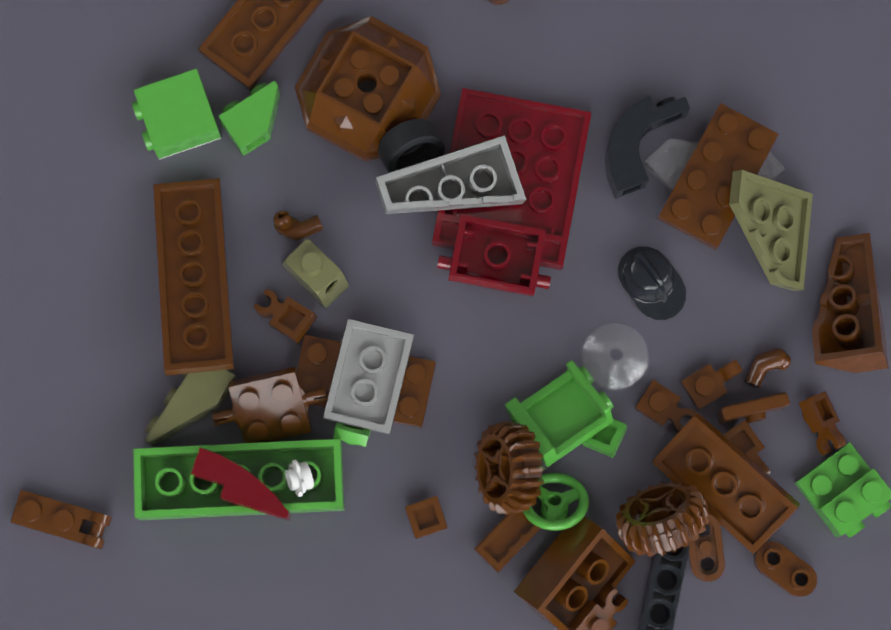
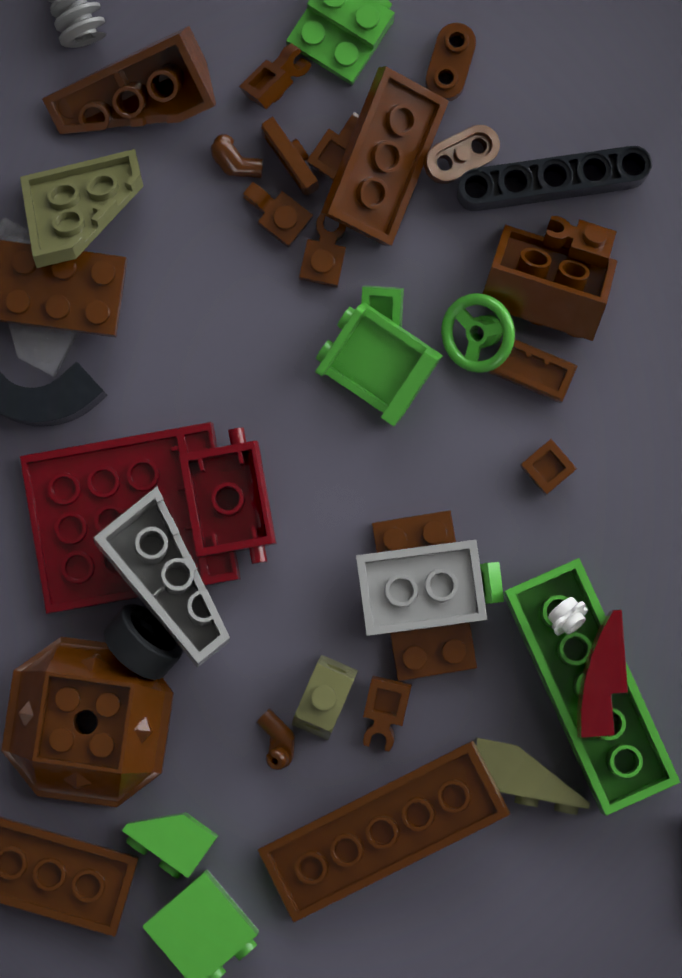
camera: 105 degrees left, 5 degrees up
(270, 406) = (496, 685): reddish brown plate -> none
(509, 467) = (463, 393): reddish brown gear -> none
(610, 372) = (290, 349): clear dish -> none
(652, 283) = (188, 318): black piece -> none
(662, 518) = (453, 207): reddish brown gear -> none

